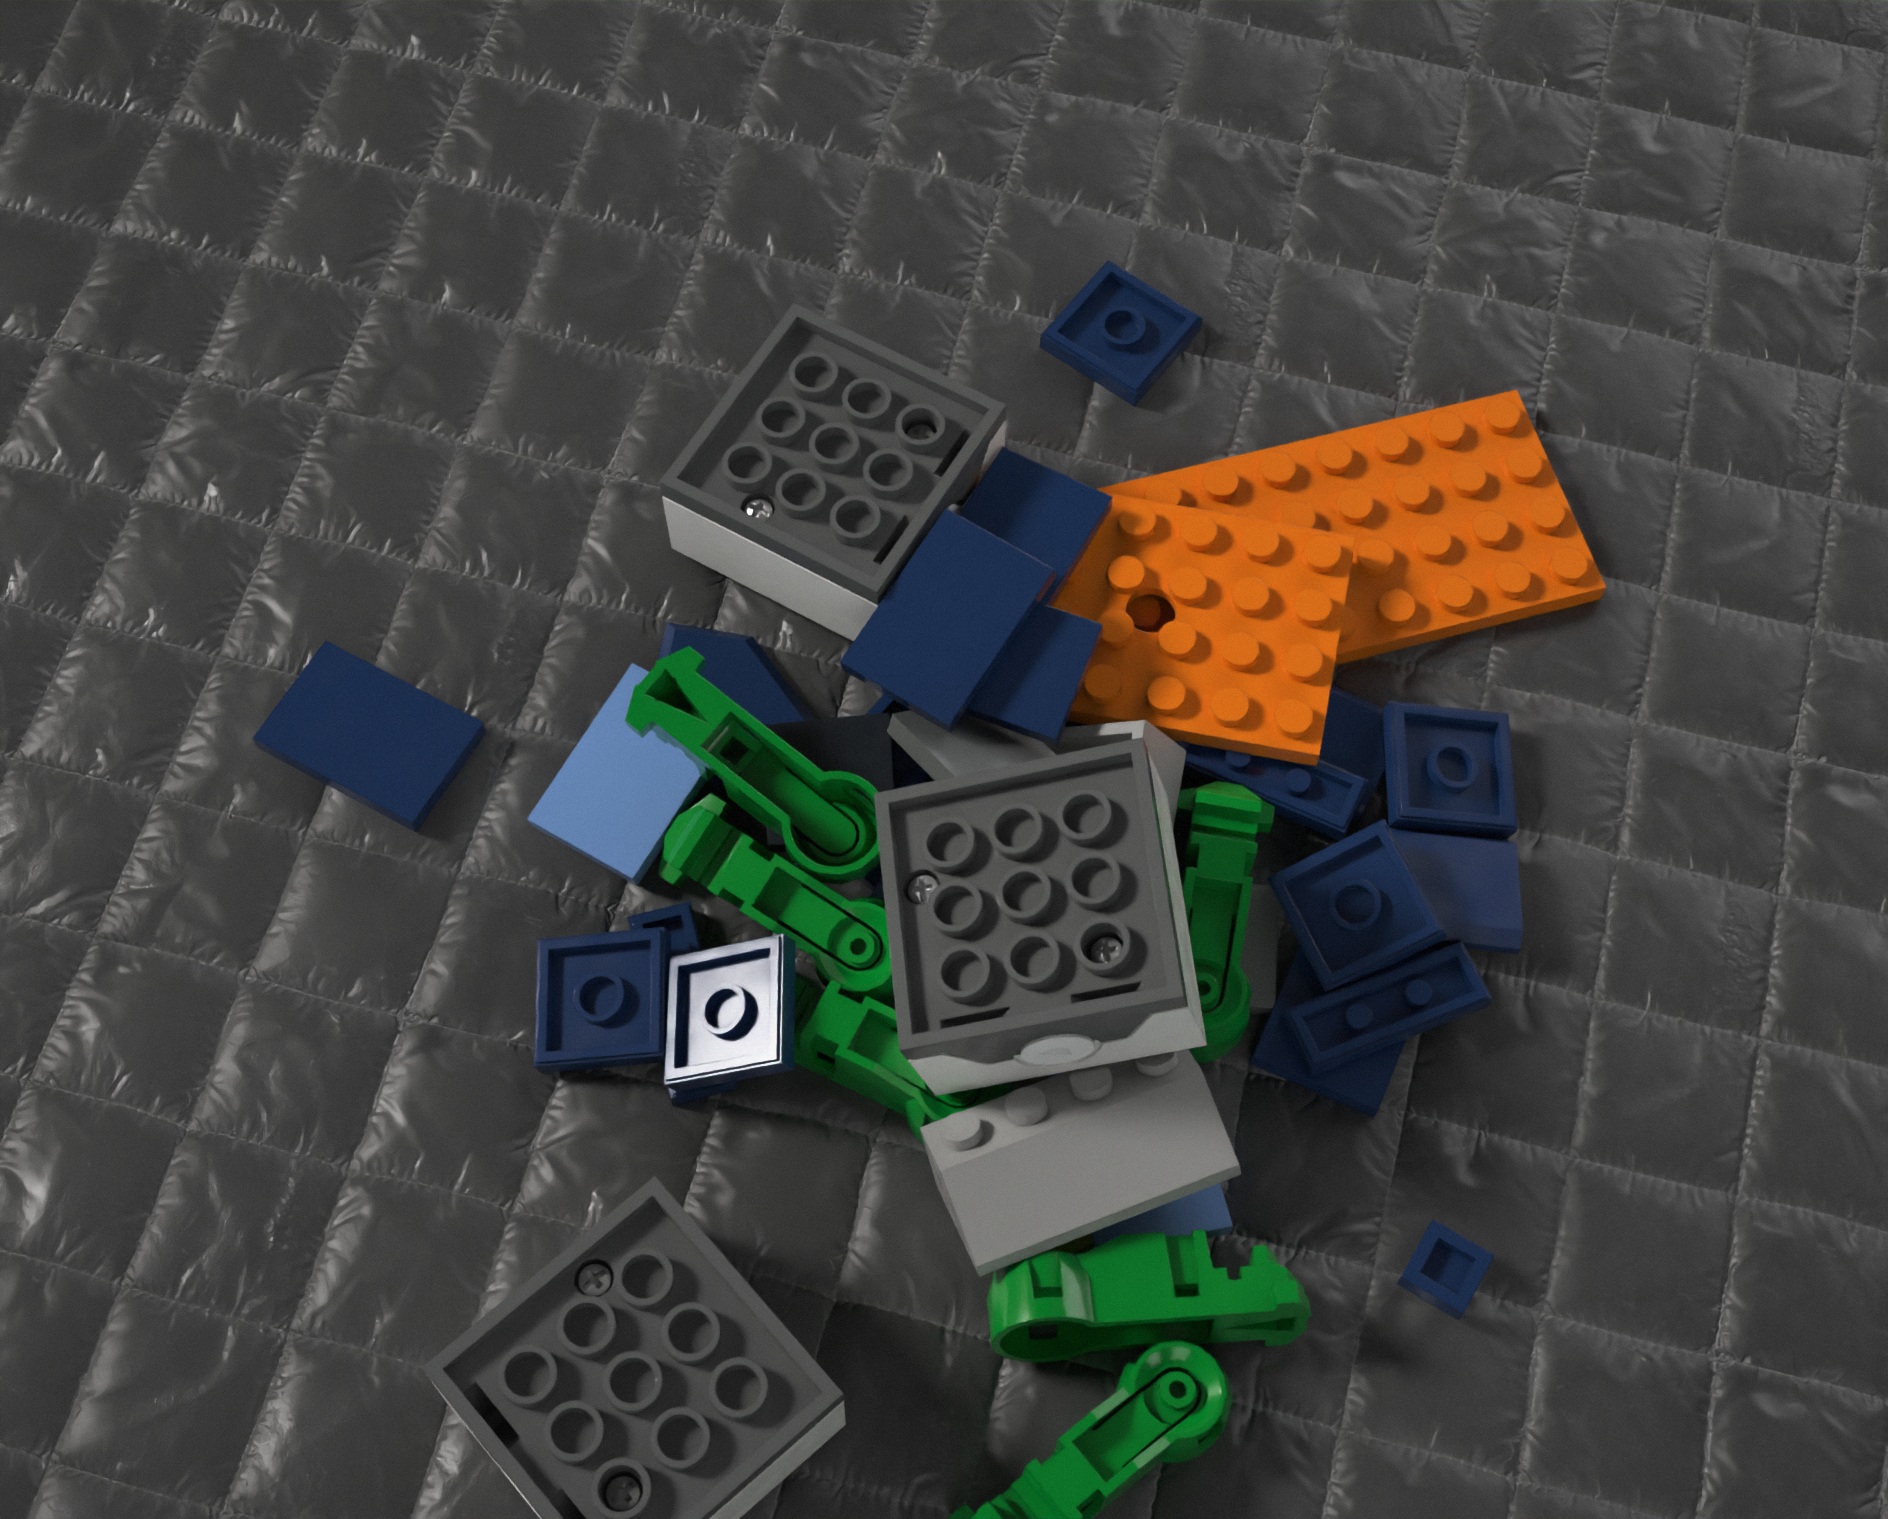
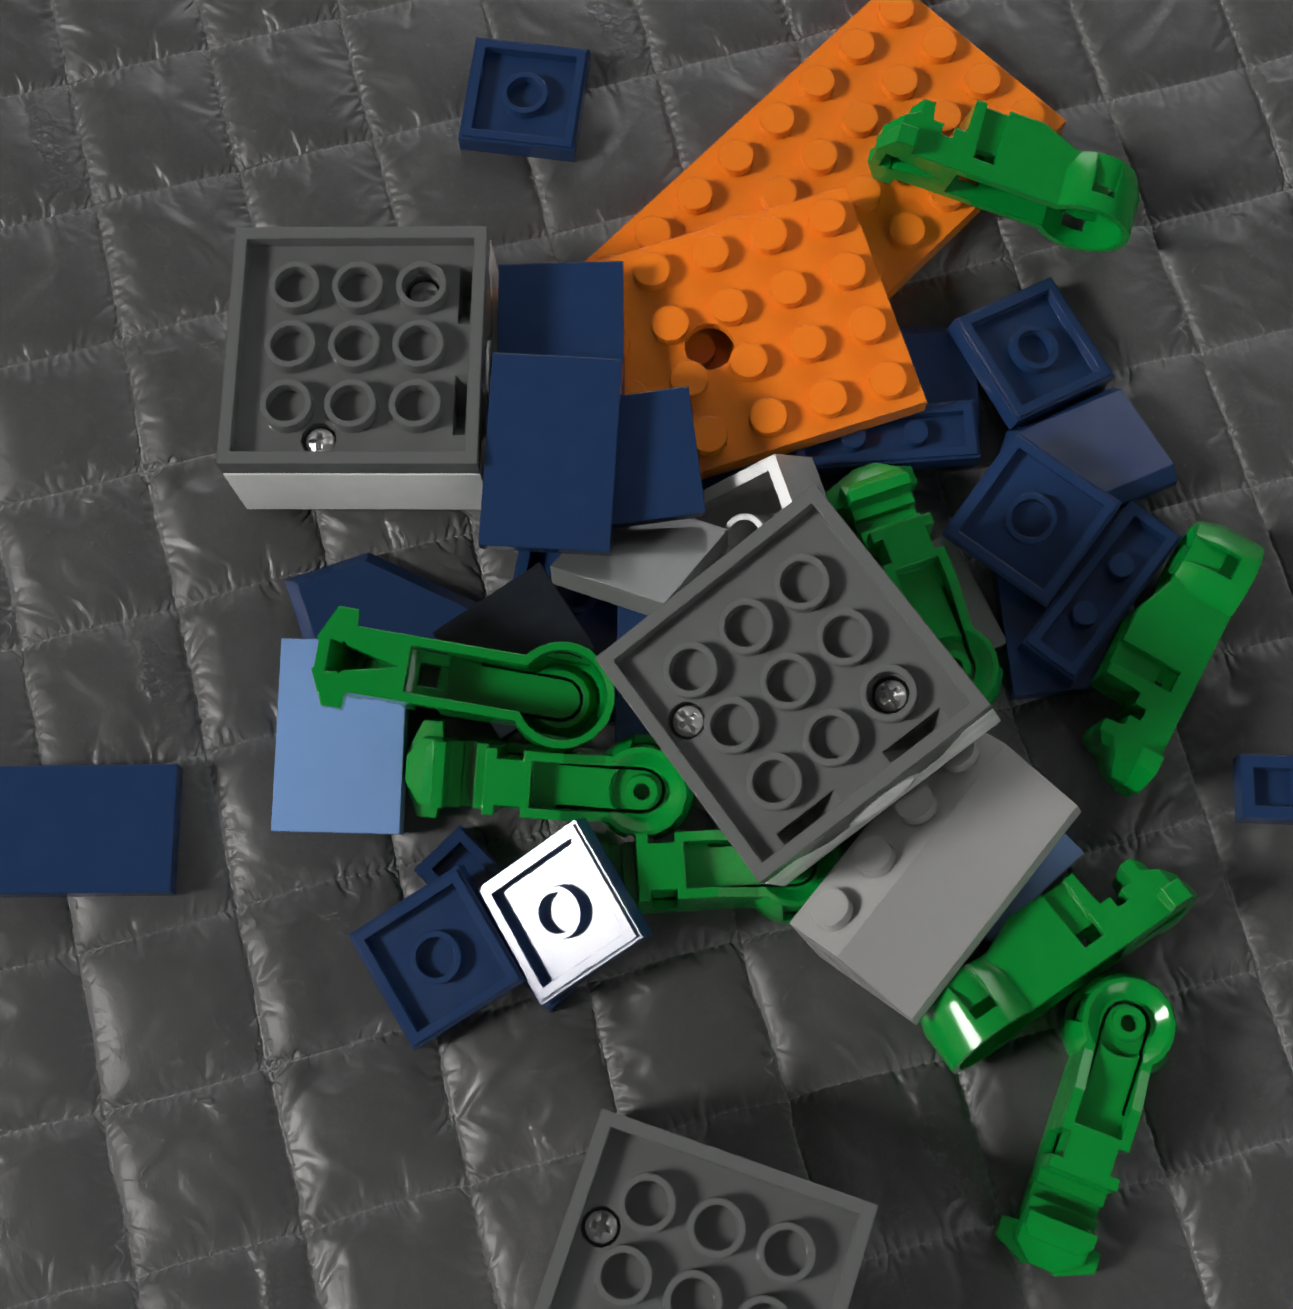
camera: 25 degrees left, 10 degrees up
(1419, 1080) = (1167, 645): none -> green piece
(1527, 603) = (1019, 173): none -> green piece

